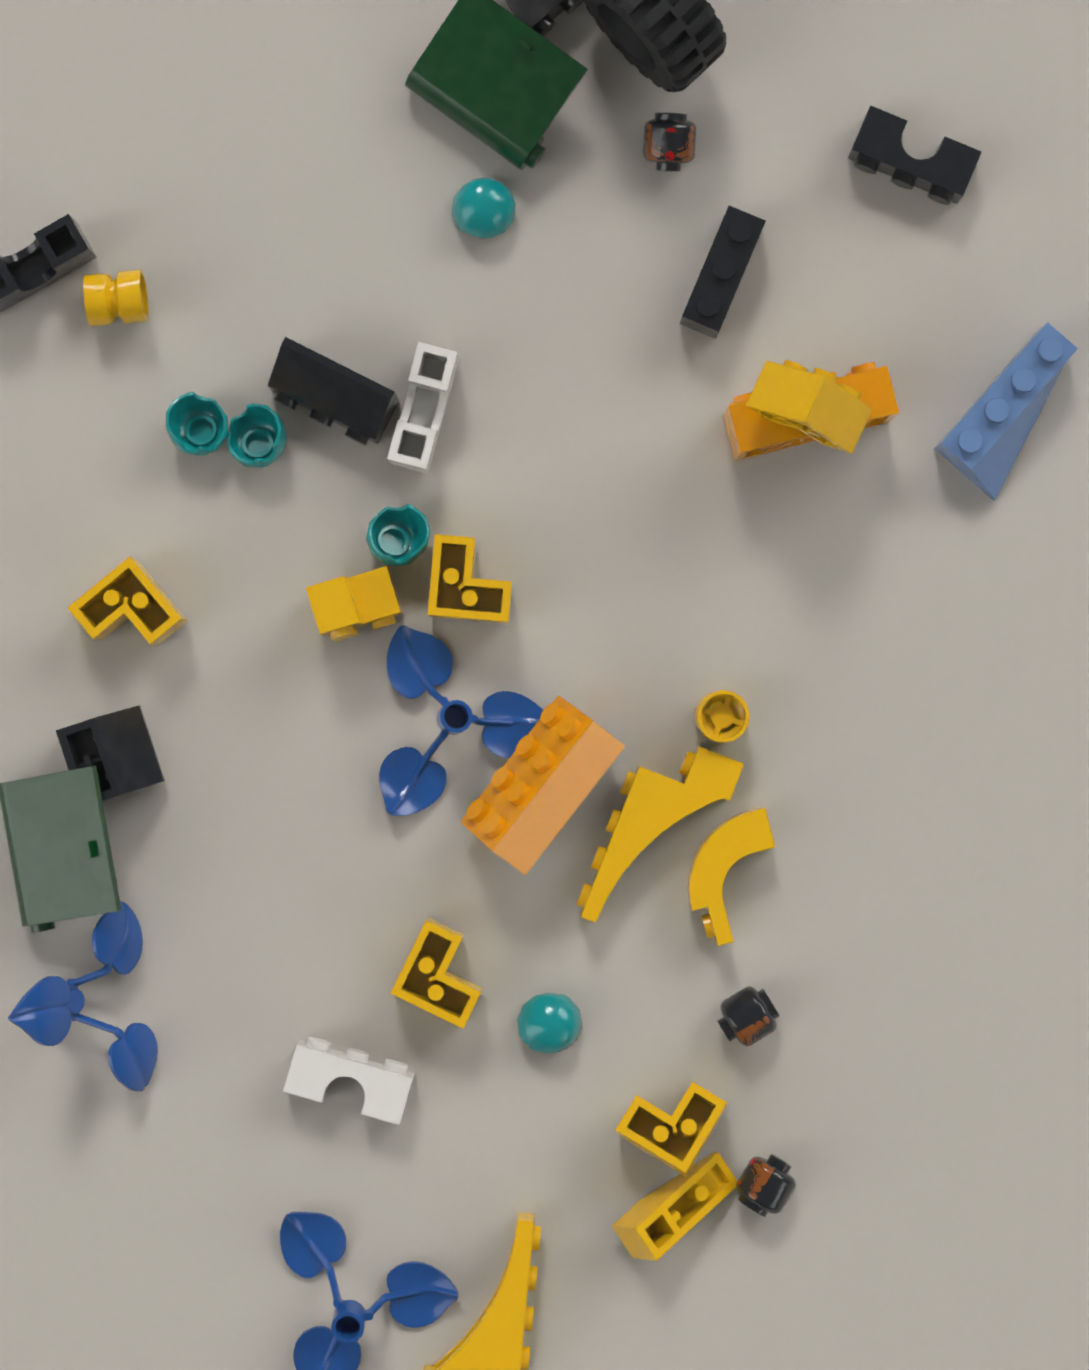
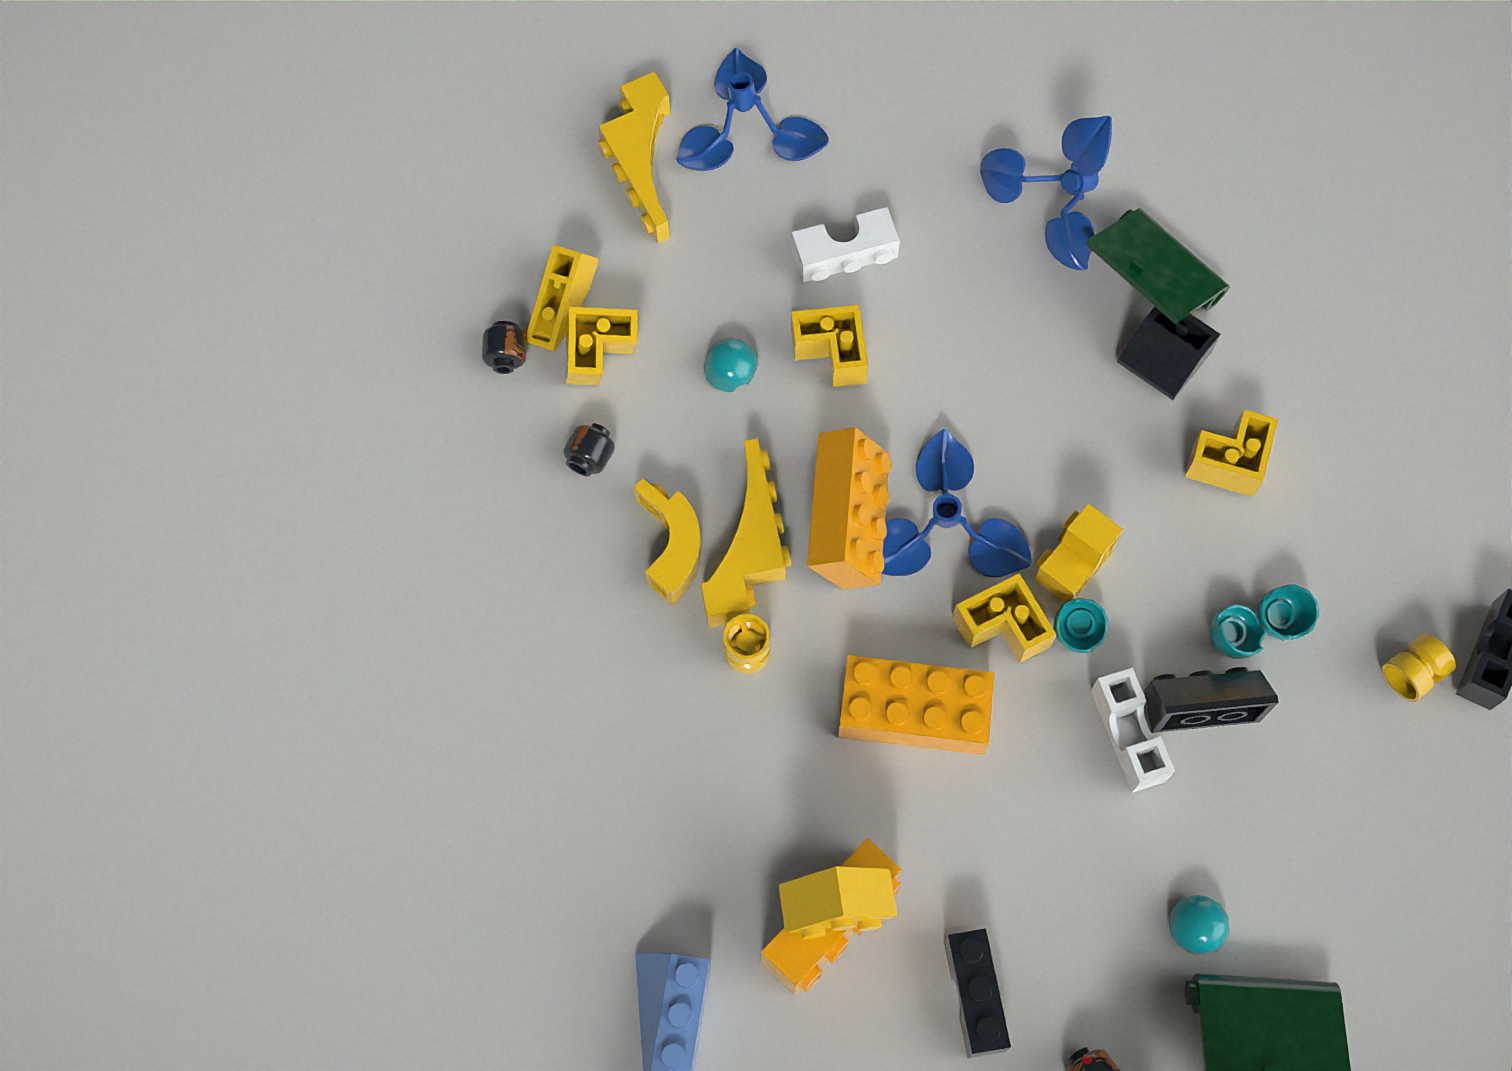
camera: 145 degrees right, 20 degrees down
(602, 558) = (916, 705): none -> light orange brick

